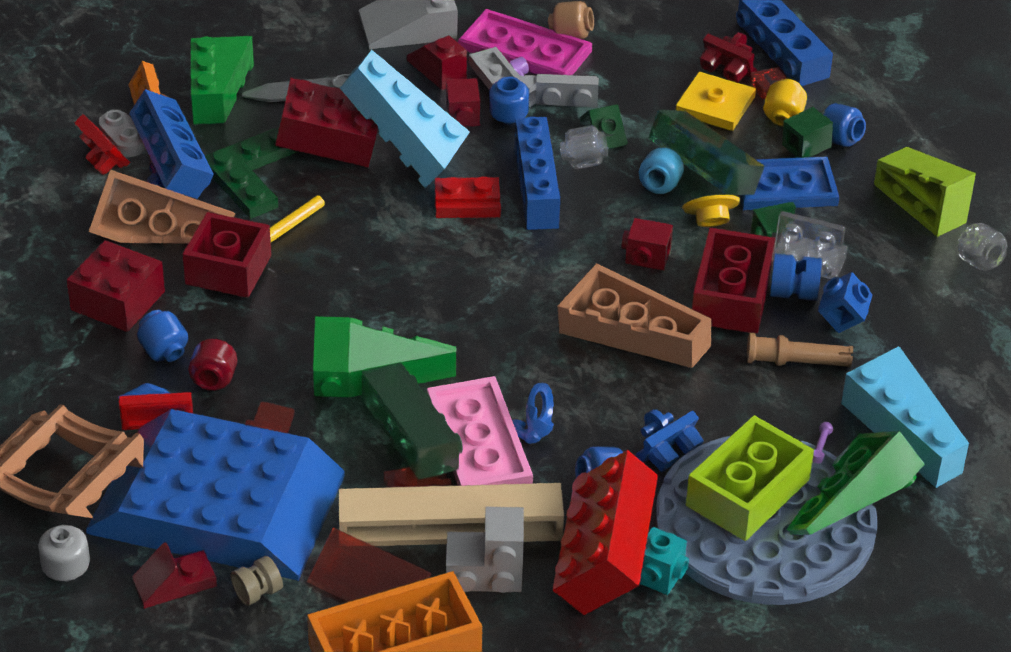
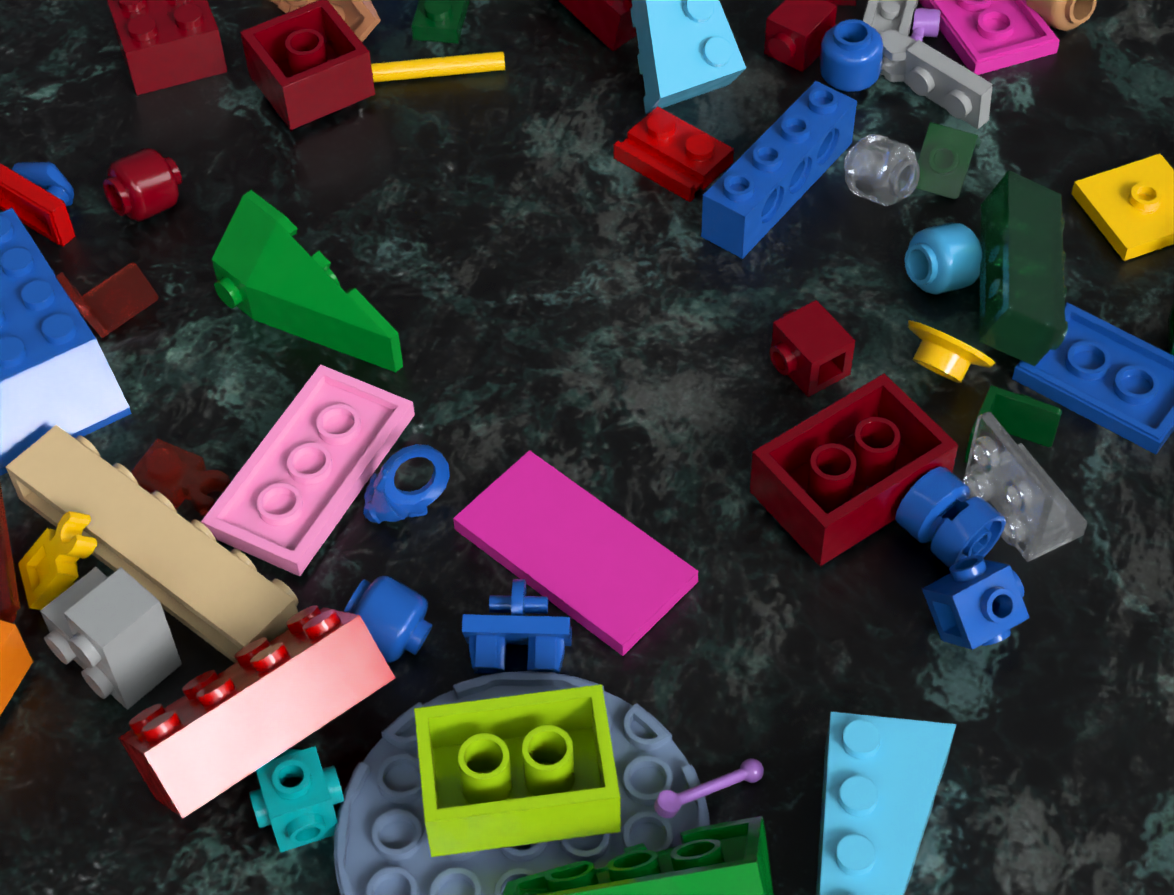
camera: 45 degrees right, 10 degrees up
(162, 336) = (139, 117): blue head -> none
(411, 421) = (235, 394): clear green brick -> none
(415, 546) = (52, 560): none -> yellow plate
(631, 391) = (576, 552): none -> dark pink tile
(633, 318) = (656, 429): nougat wedge -> none
(781, 350) = (816, 614): medium nougat pin -> none

